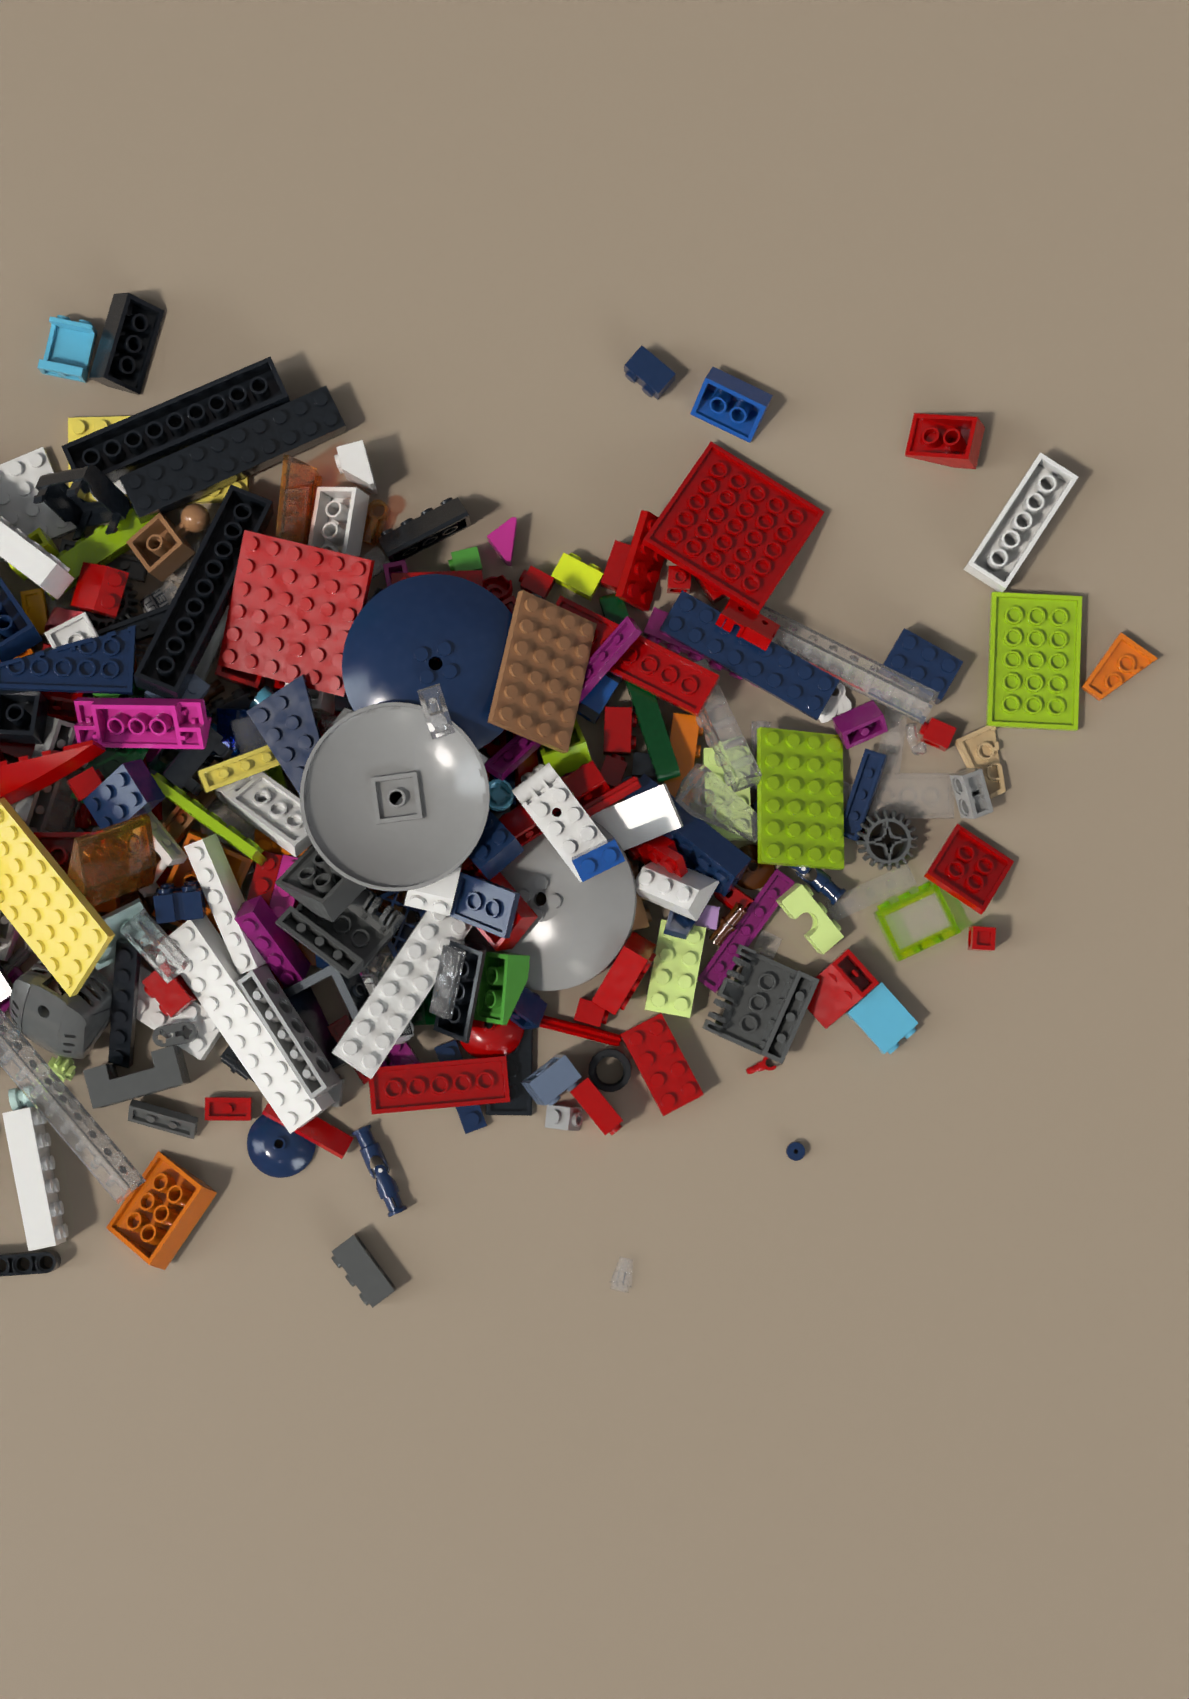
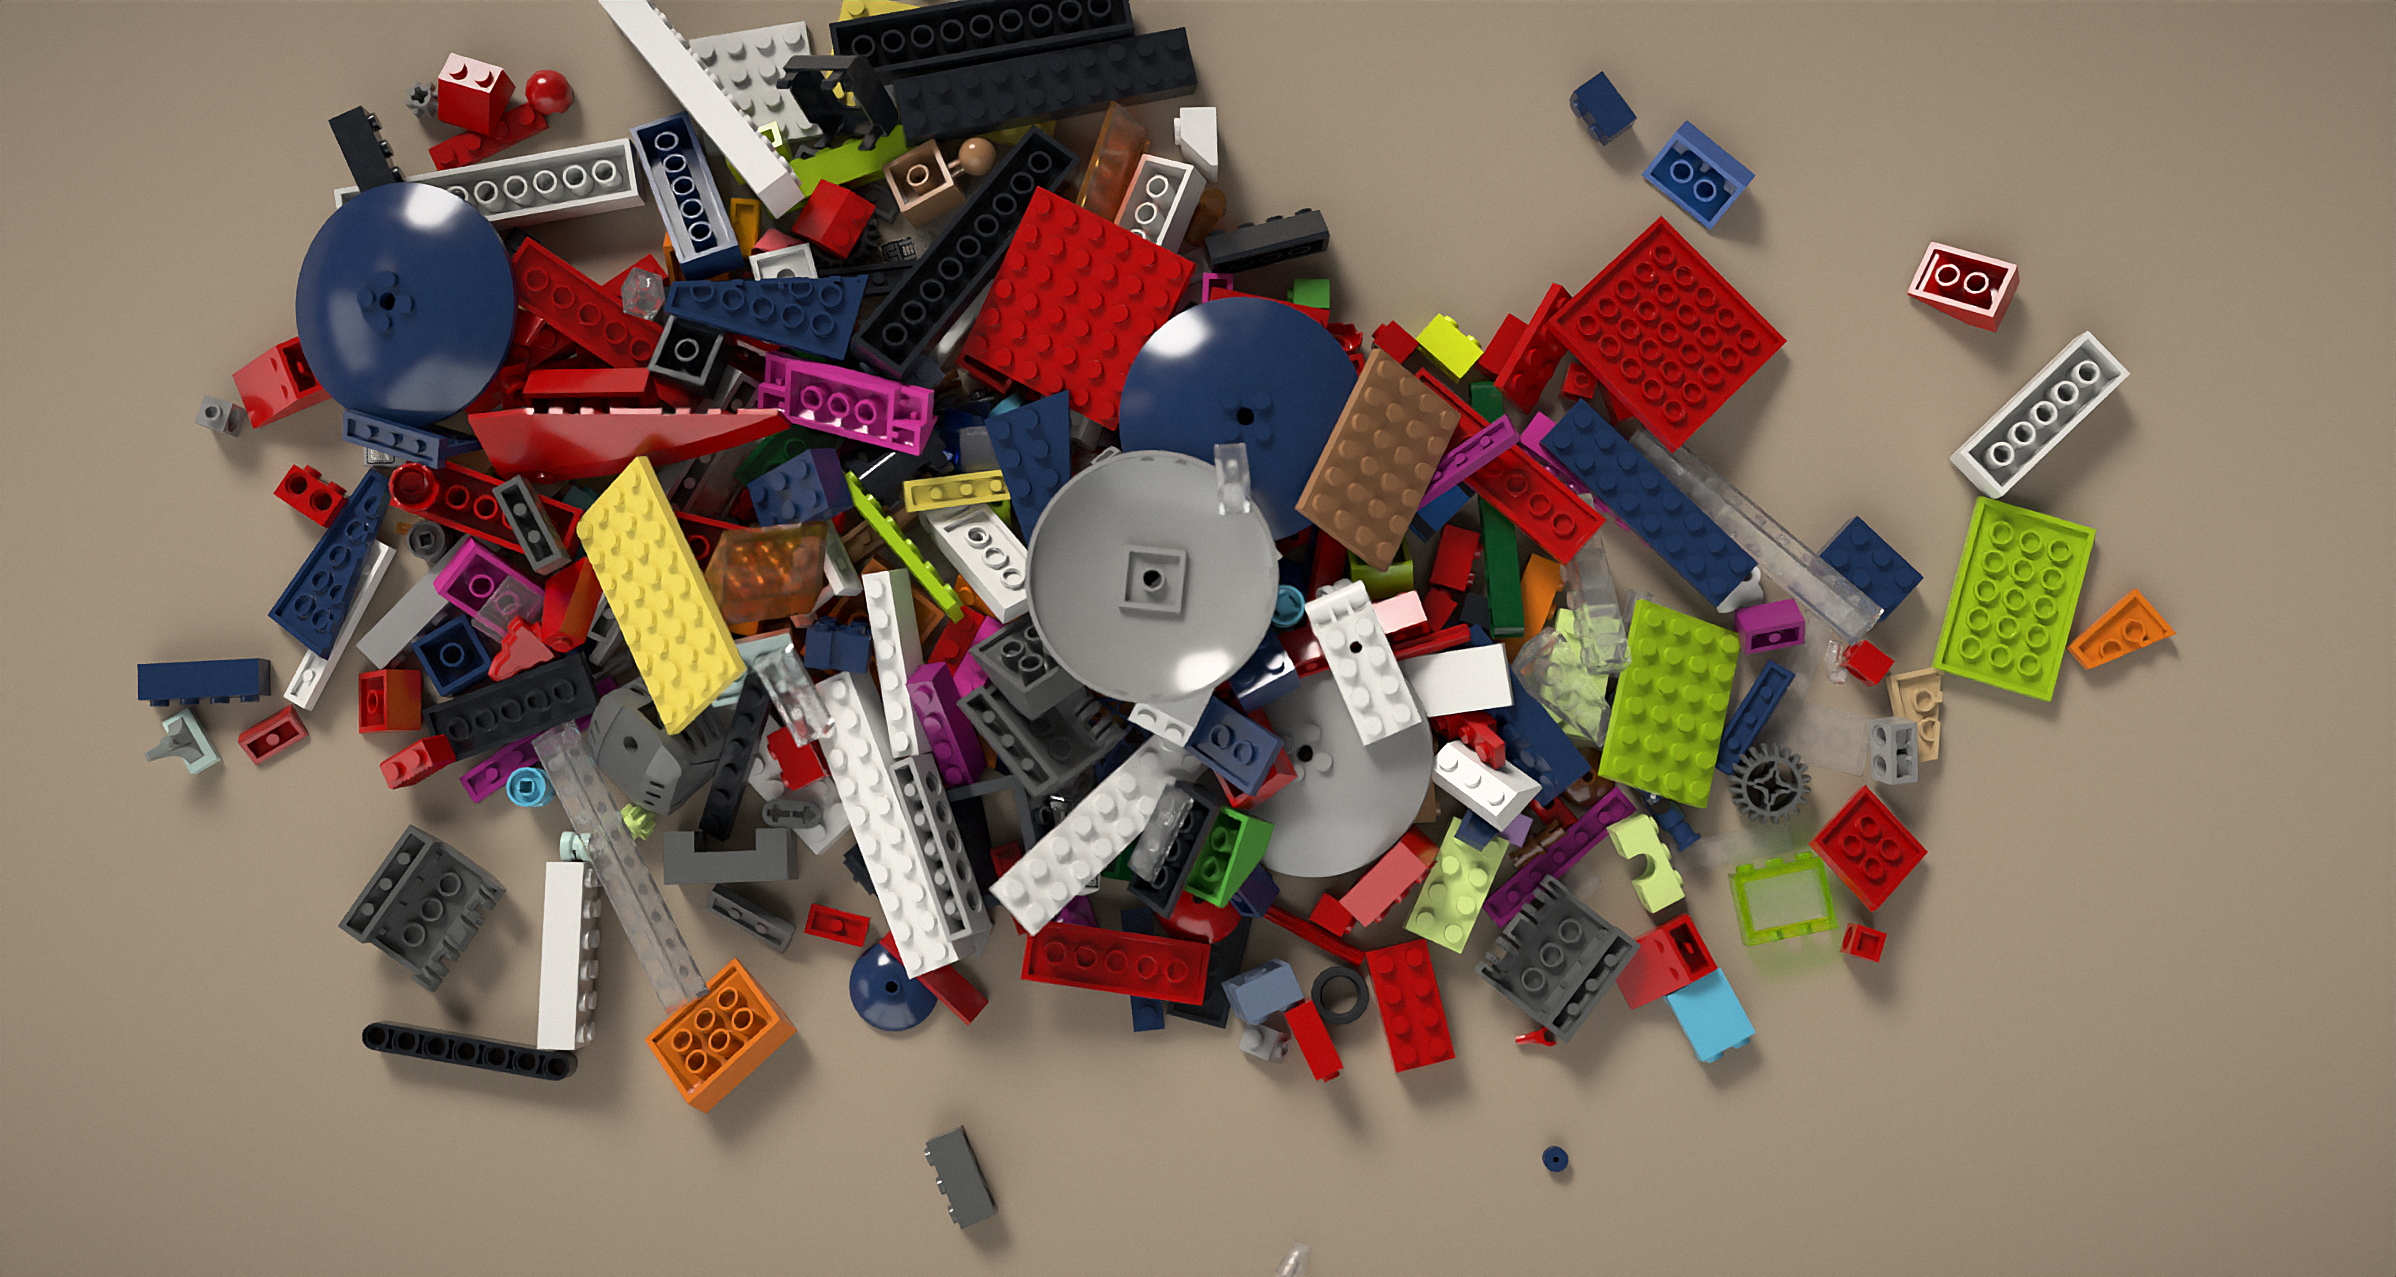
camera: 15 degrees right, 0 degrees up
(85, 783) = (755, 462): red brick -> none
(385, 1183) = (1015, 1074): dark blue piece -> none
(503, 540) = (1364, 278): dark pink slope -> none
(510, 756) = (1312, 560): magenta plate -> none
(598, 859) = (1398, 722): blue panel -> none
(754, 628) = (1665, 469): red piece -> none

